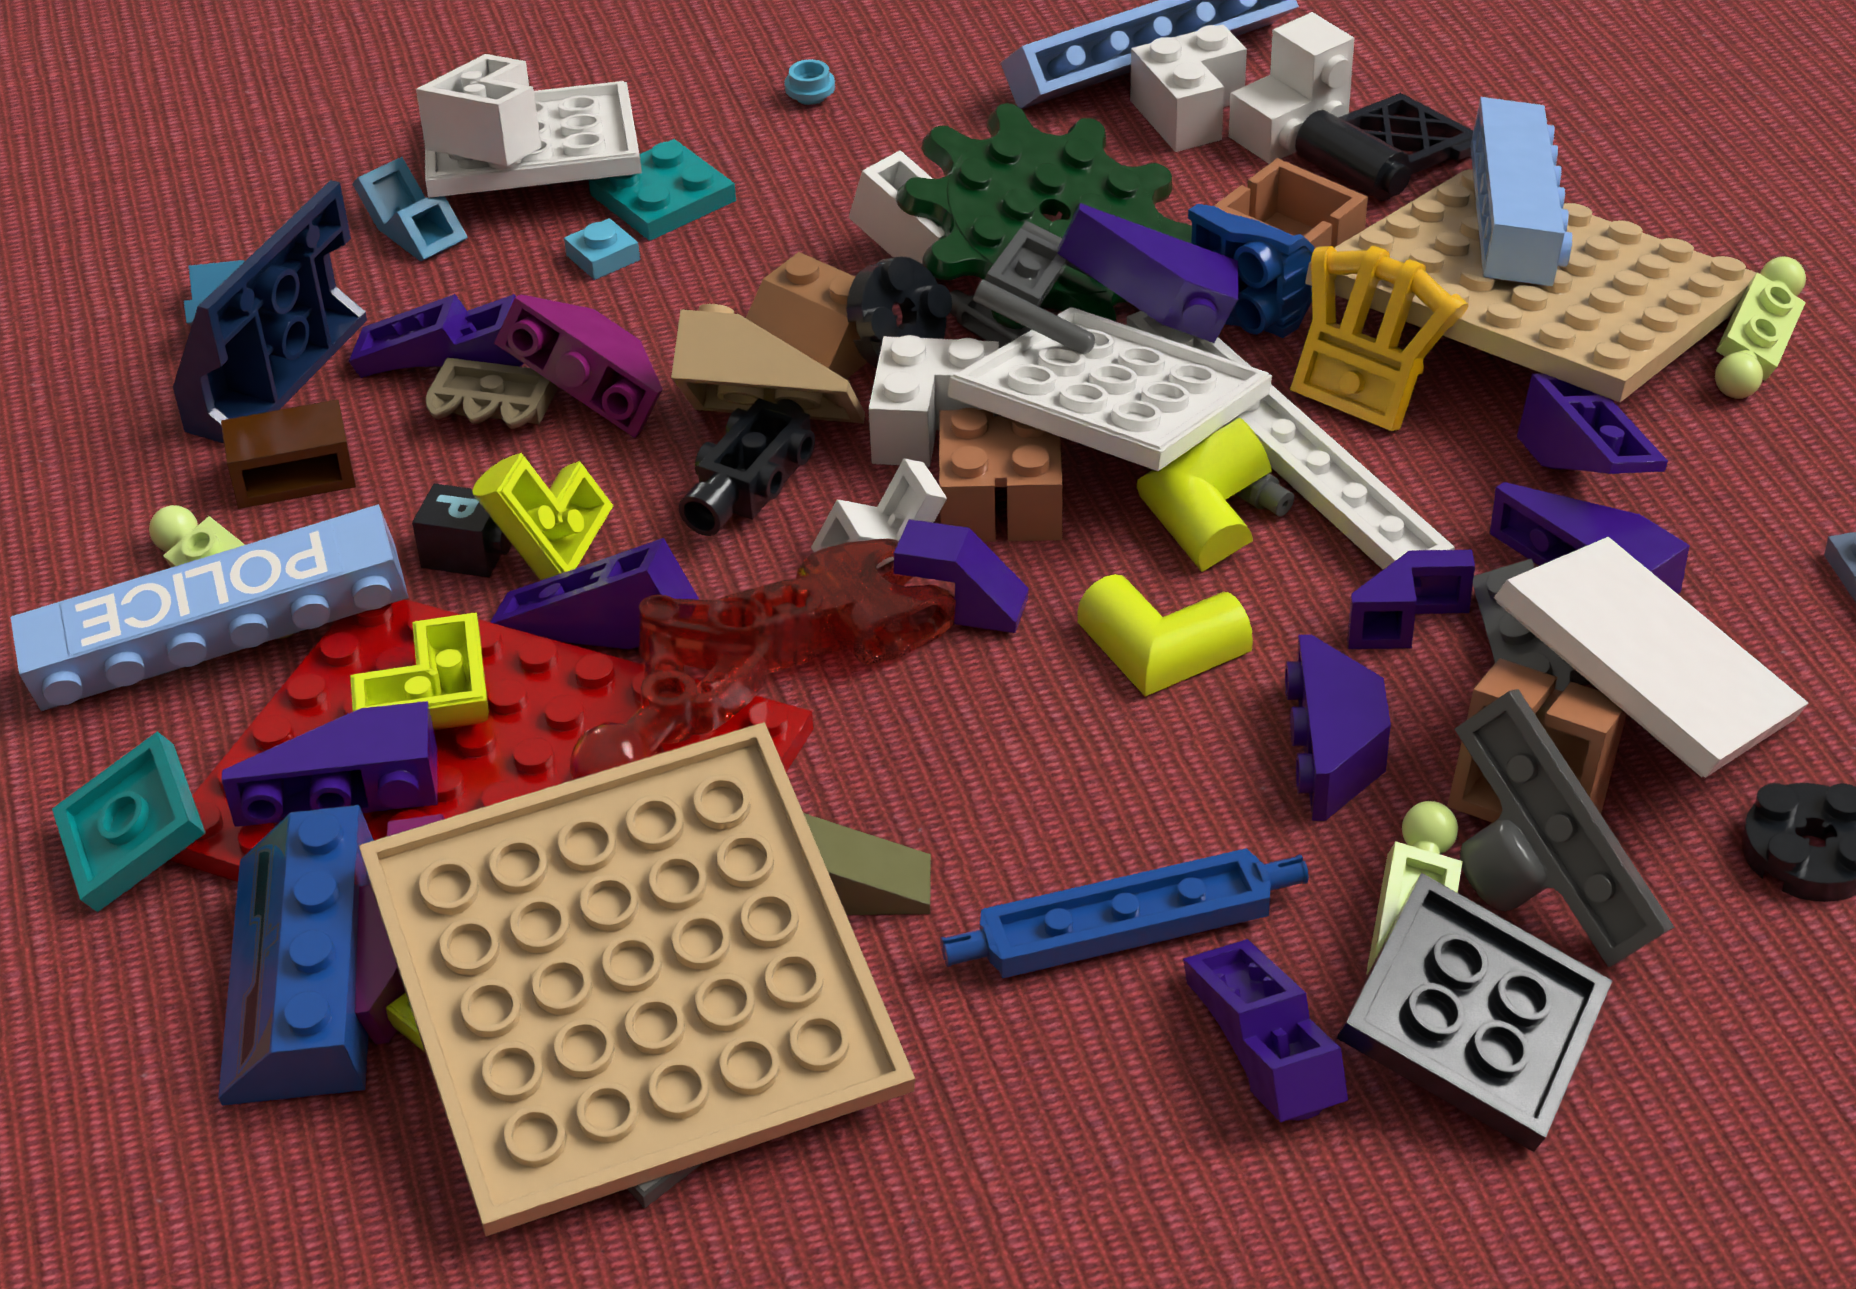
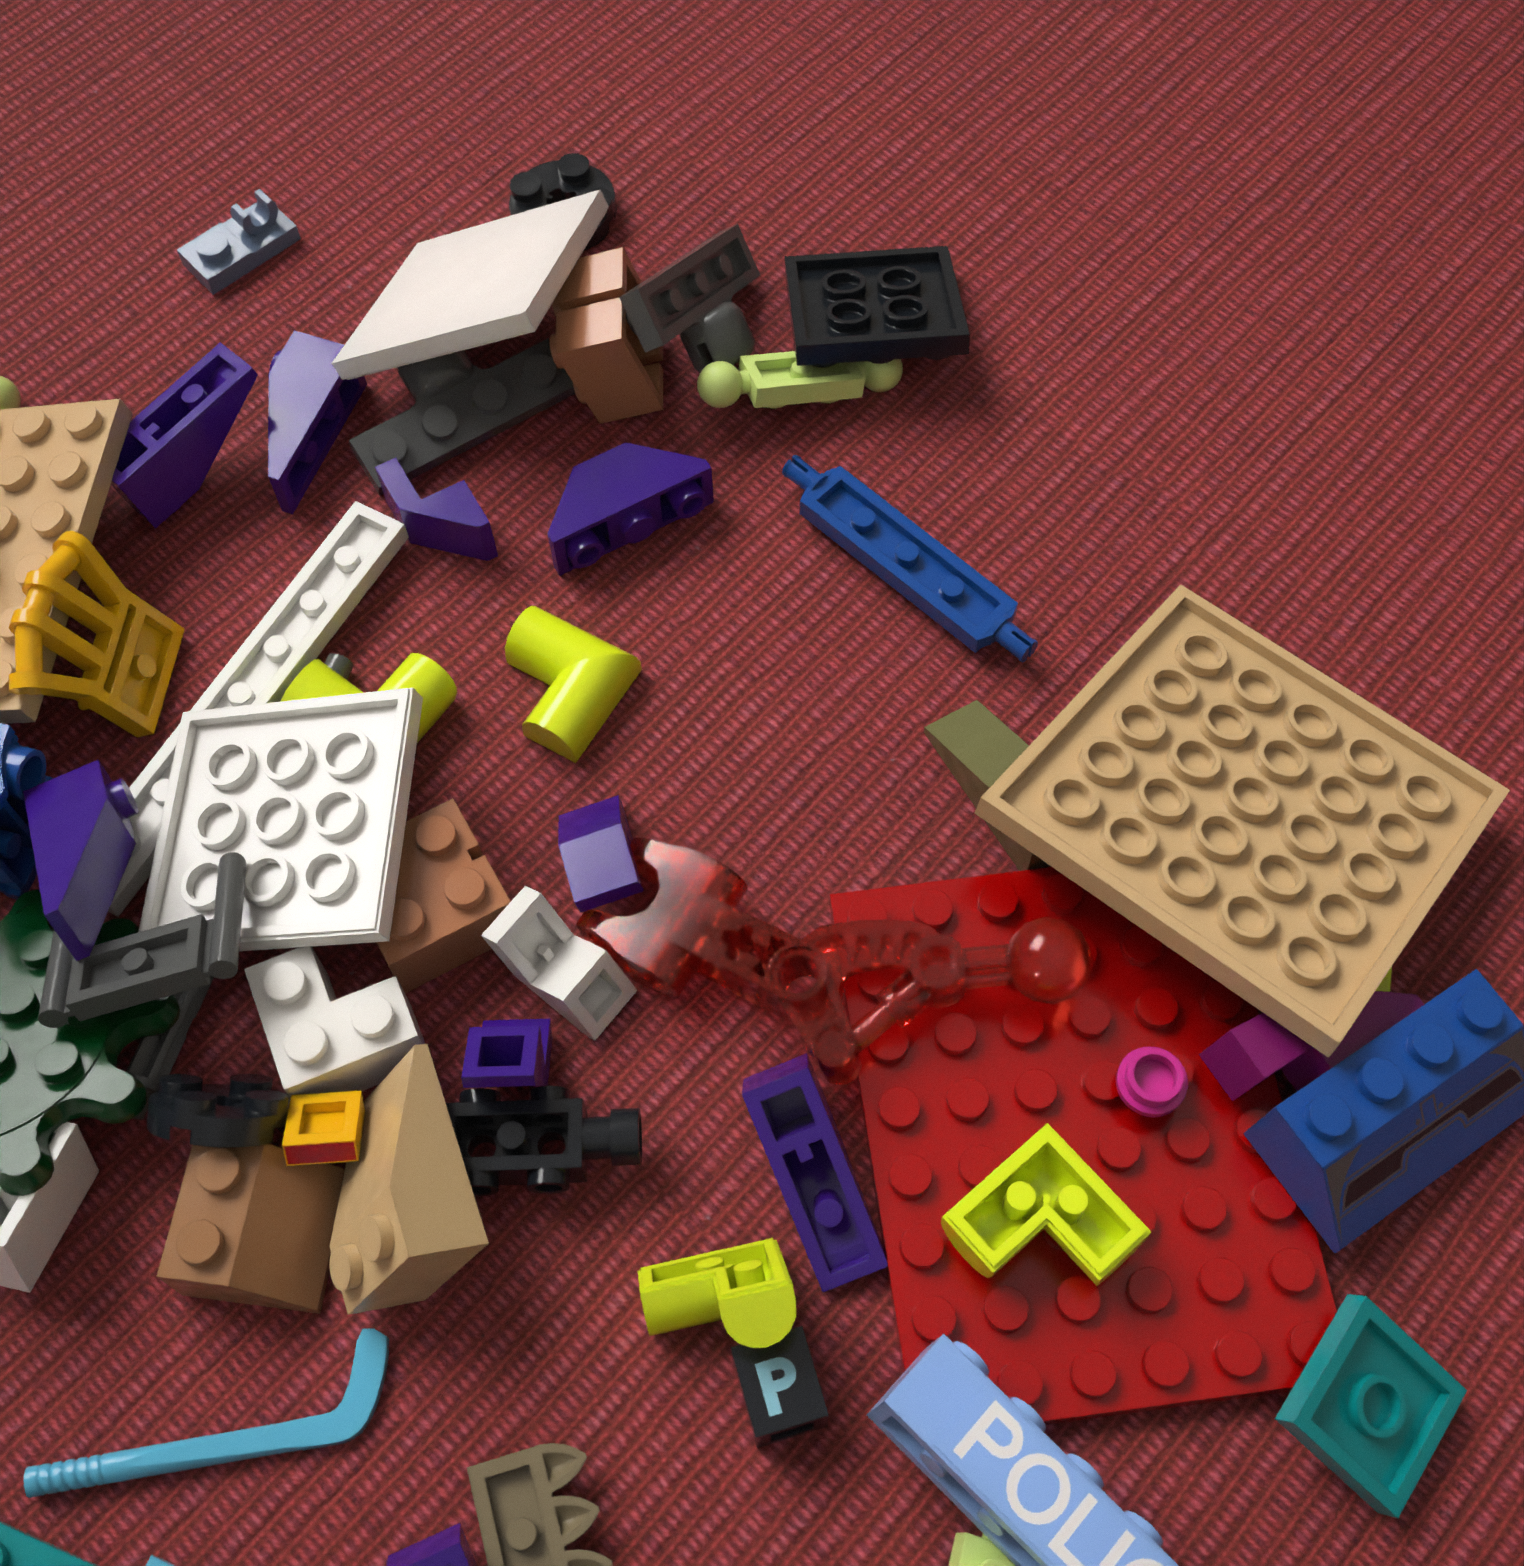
camera: 120 degrees left, 20 degrees up
(364, 759) = (1201, 1211): dark purple slope -> none
(464, 793) = (1151, 1081): none -> dark pink plate
(584, 358) = (444, 1417): magenta slope -> none
(682, 289) = (290, 1436): none -> medium azure piece
(812, 473) = (508, 1054): none -> dark purple slope
(844, 351) = (324, 1128): none -> yellow plate
(1268, 1024) = (959, 423): dark purple slope -> none

